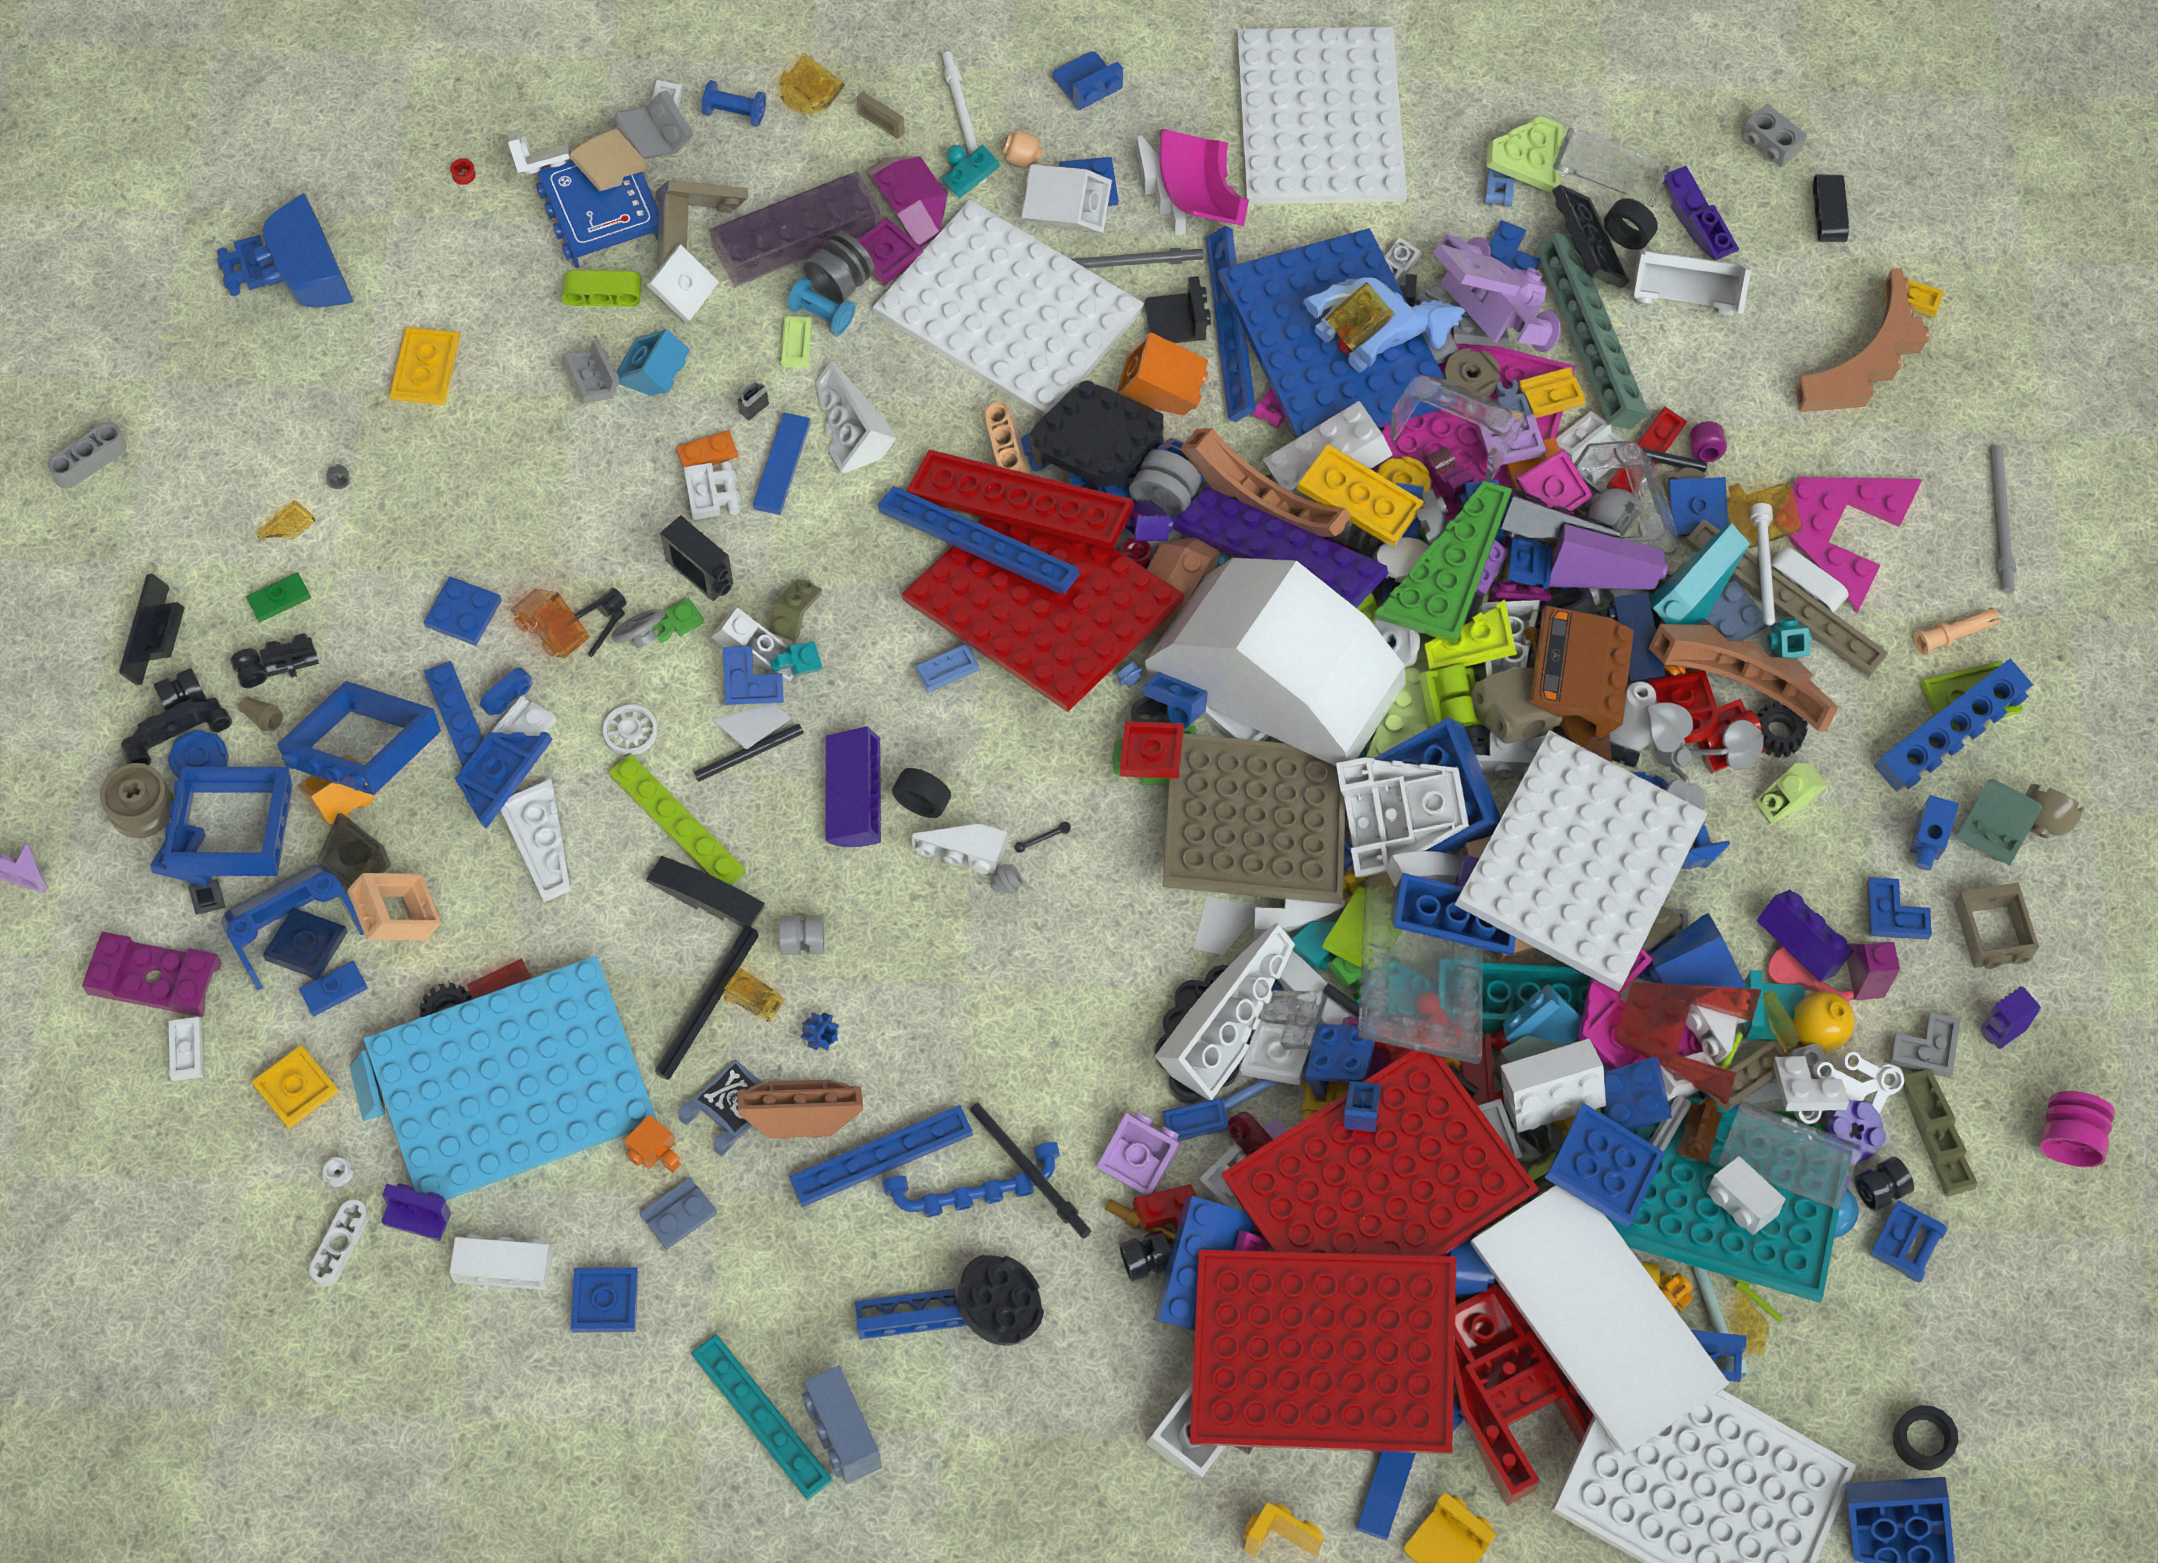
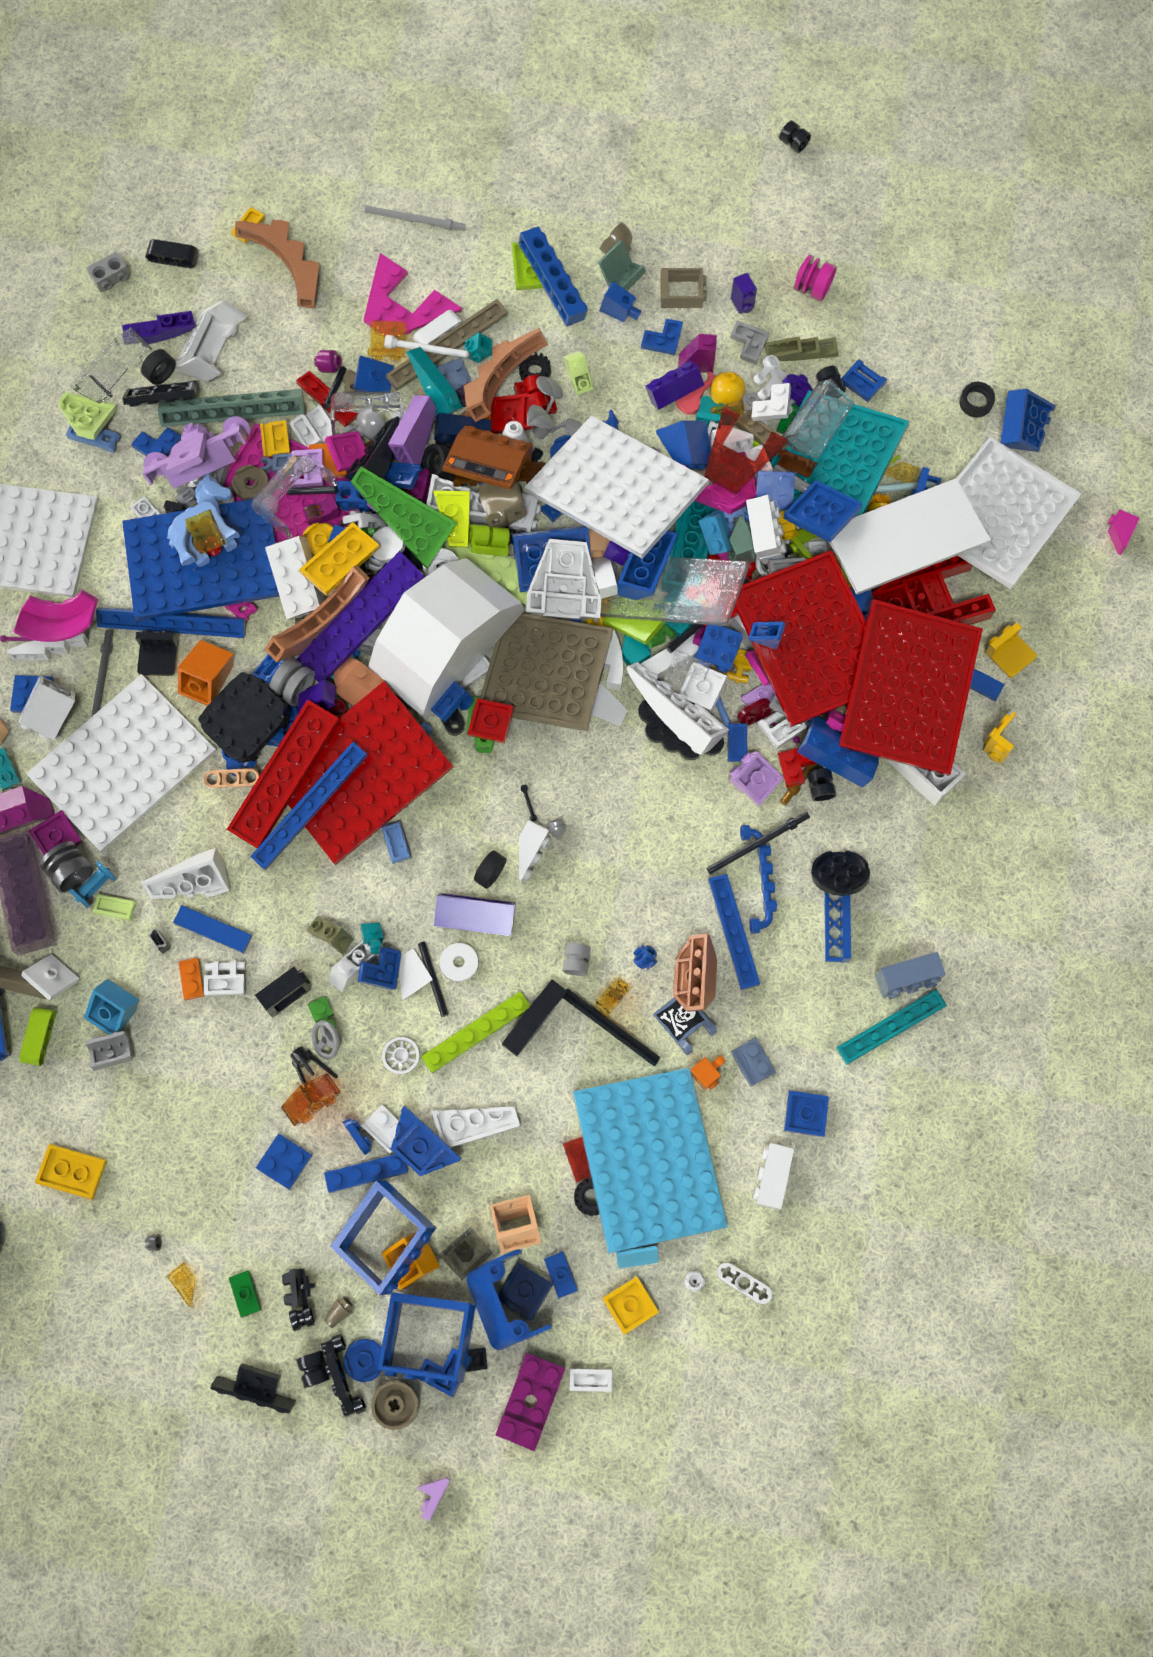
camera: 80 degrees left, 10 degrees up
(75, 458) = (83, 1427): light grey beam -> none
(415, 1212) = (733, 1232): dark purple bracket -> none
(778, 766) = (463, 973): none -> white tile
(1476, 453) = (313, 490): none -> black bar
(1745, 1195) = (844, 446): white brick -> none
(1945, 633) = (488, 266): light nougat pin -> none

